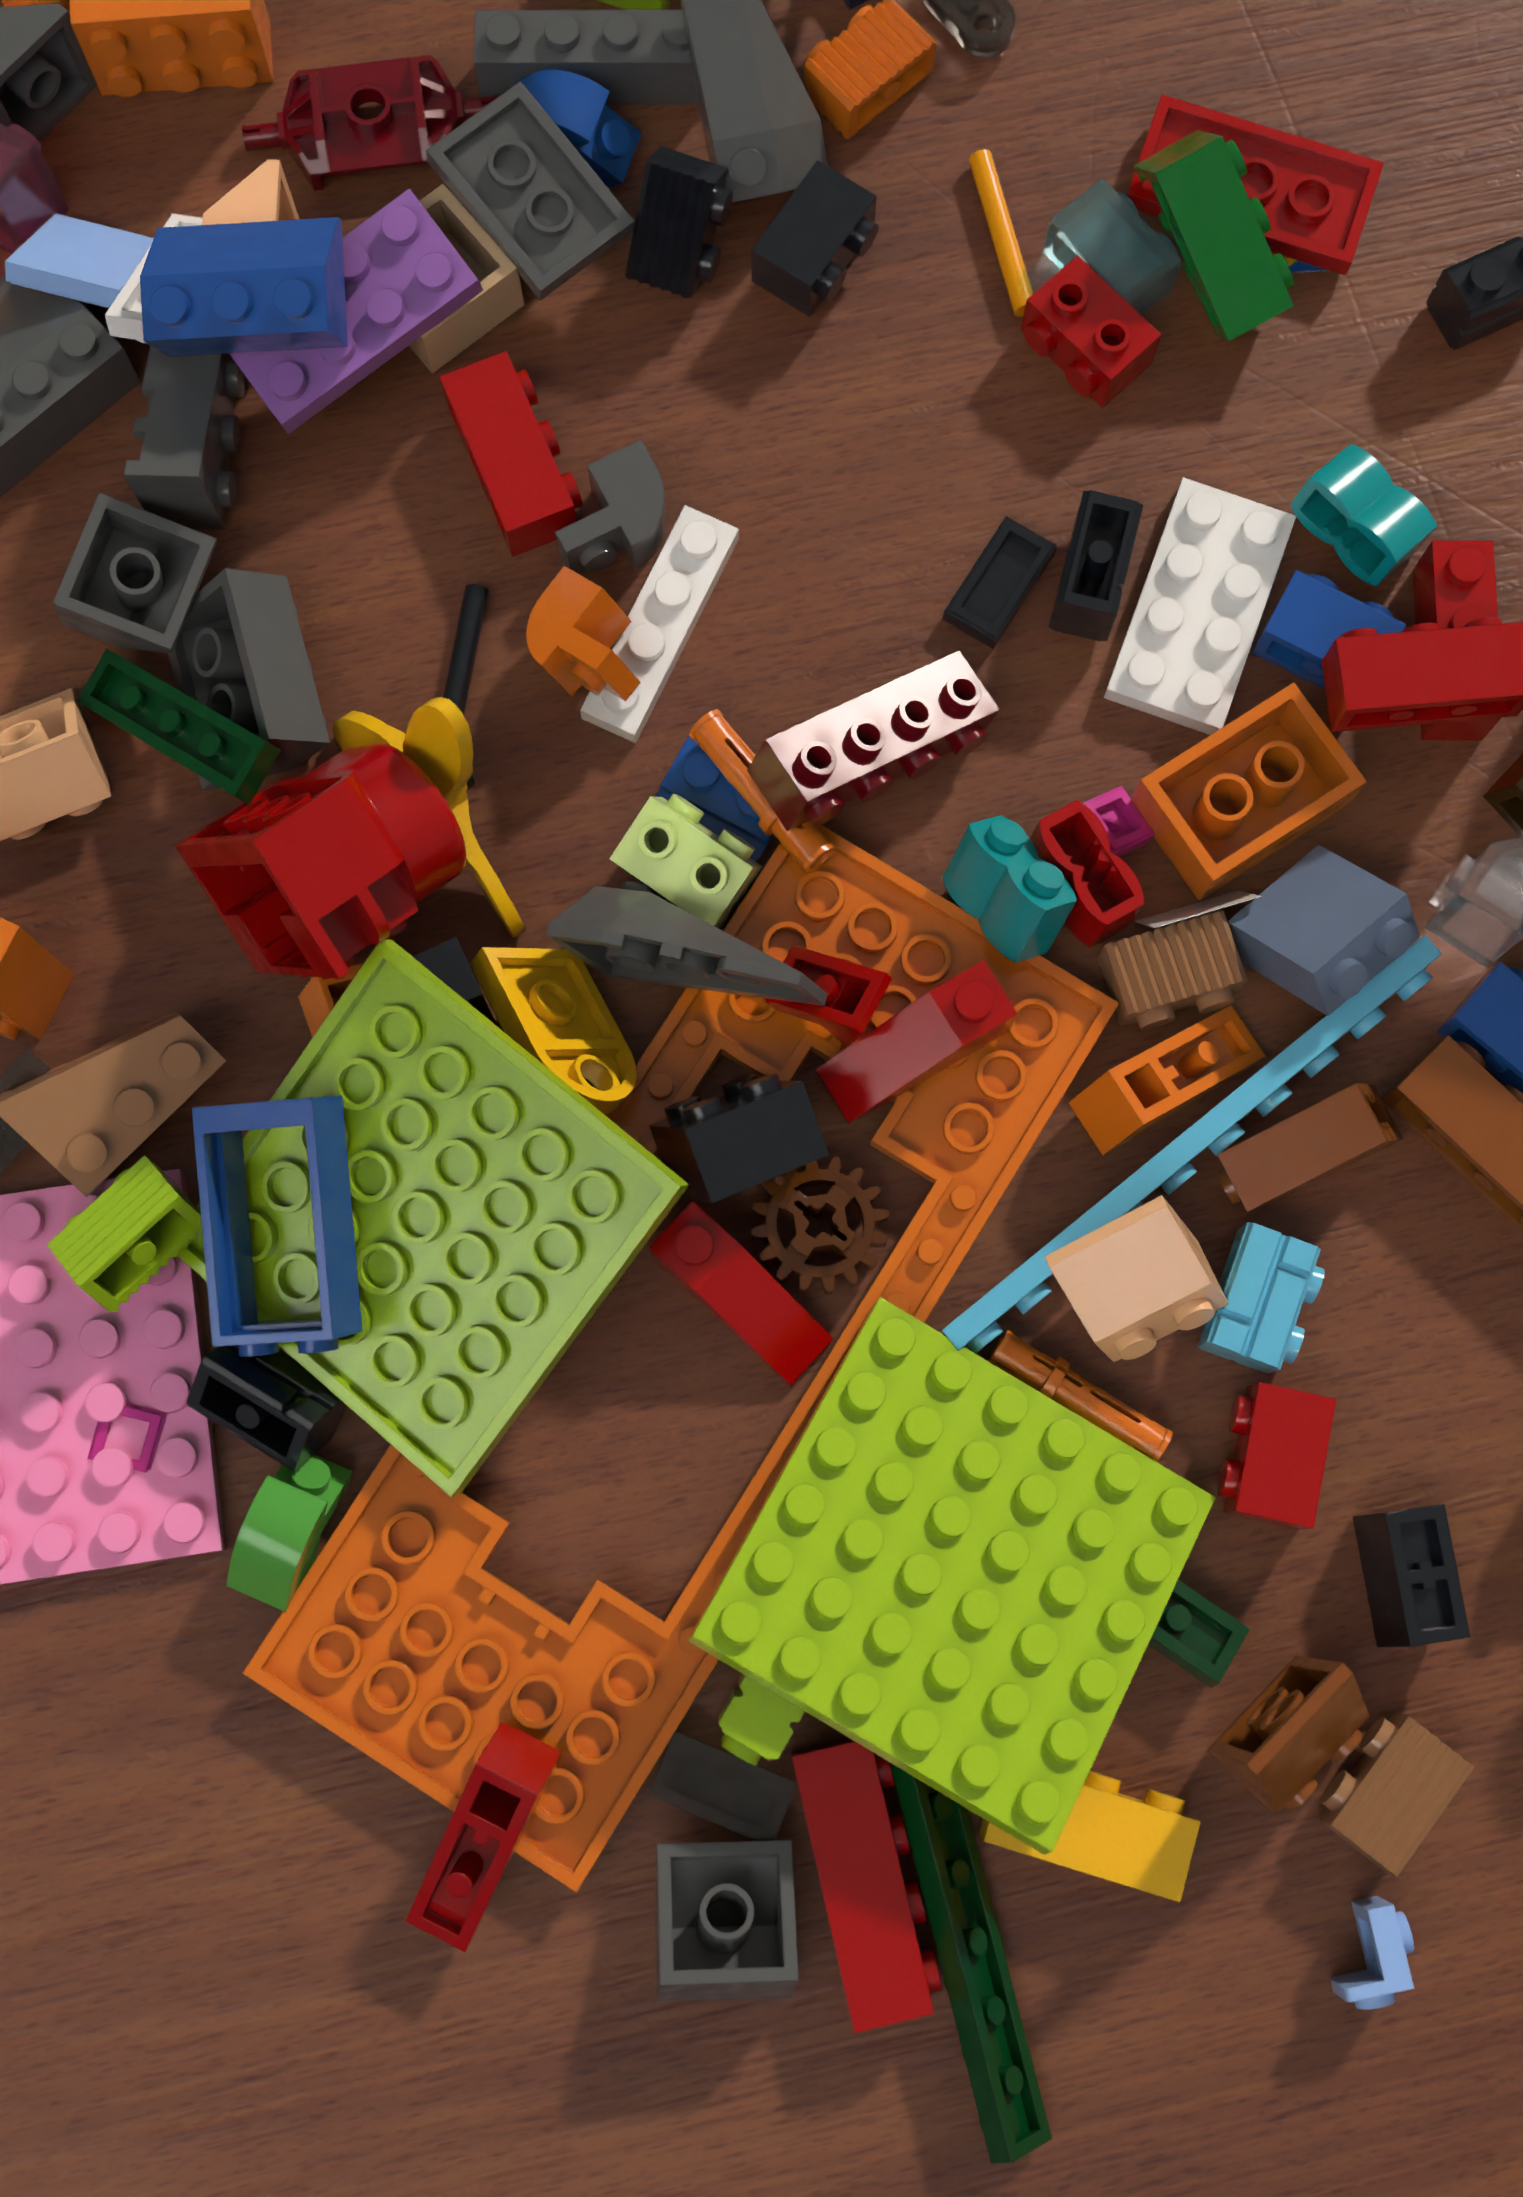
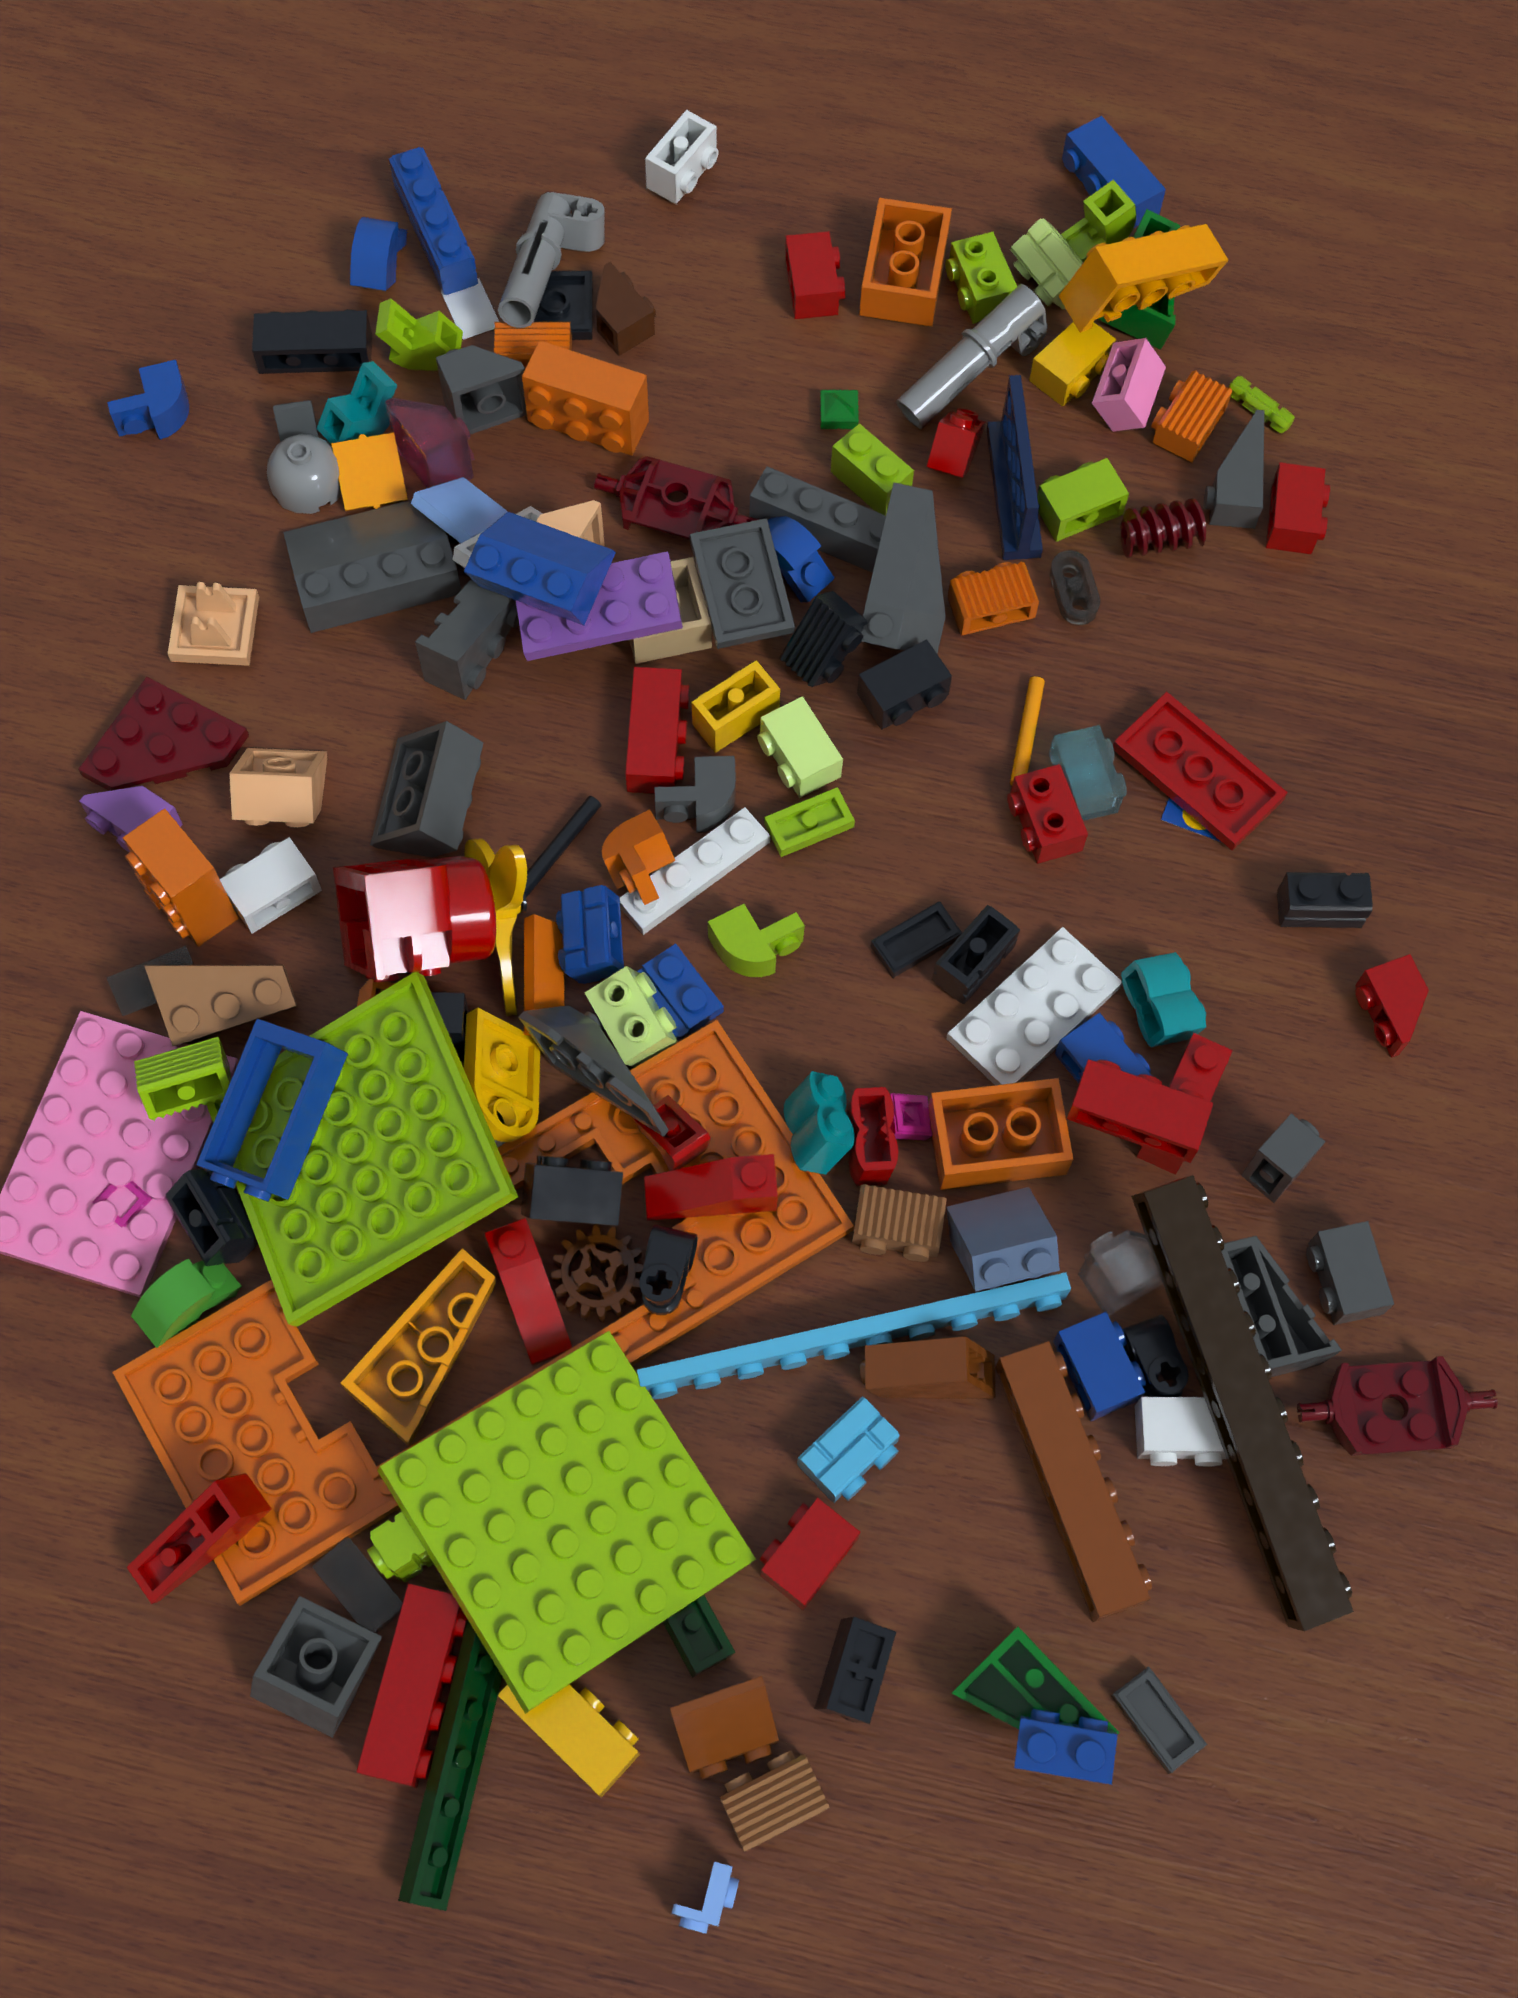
camera: 25 degrees right, 10 degrees down
(97, 908) = (270, 884): none -> white brick
(132, 577) = (392, 702): dark grey slope -> none
(179, 726) = (372, 800): dark green plate -> none
(529, 849) = (541, 966): none -> orange tile
(572, 775) = (590, 934): none -> blue brick
(604, 369) = (735, 706): none -> yellow brick
(639, 1458) = (414, 1357): none -> light orange wedge
(719, 388) = (800, 747): none -> yellowish green brick
(733, 759) = (701, 1011): orange pin -> none
(778, 692) = (748, 948): none -> lime brick
(781, 486) = (809, 822): none -> lime plate
(872, 741) = (780, 996): brick -> none
(911, 1168) = (667, 1262): none -> black piece
(1080, 1396) = (699, 1447): orange pin -> none
(1138, 1280) = (771, 1395): light nougat slope -> none
(1165, 1079) = (859, 1286): orange slope -> none
(1197, 909) = (933, 1191): white sticker -> none
(1219, 232) = (1153, 789): green wedge -> none

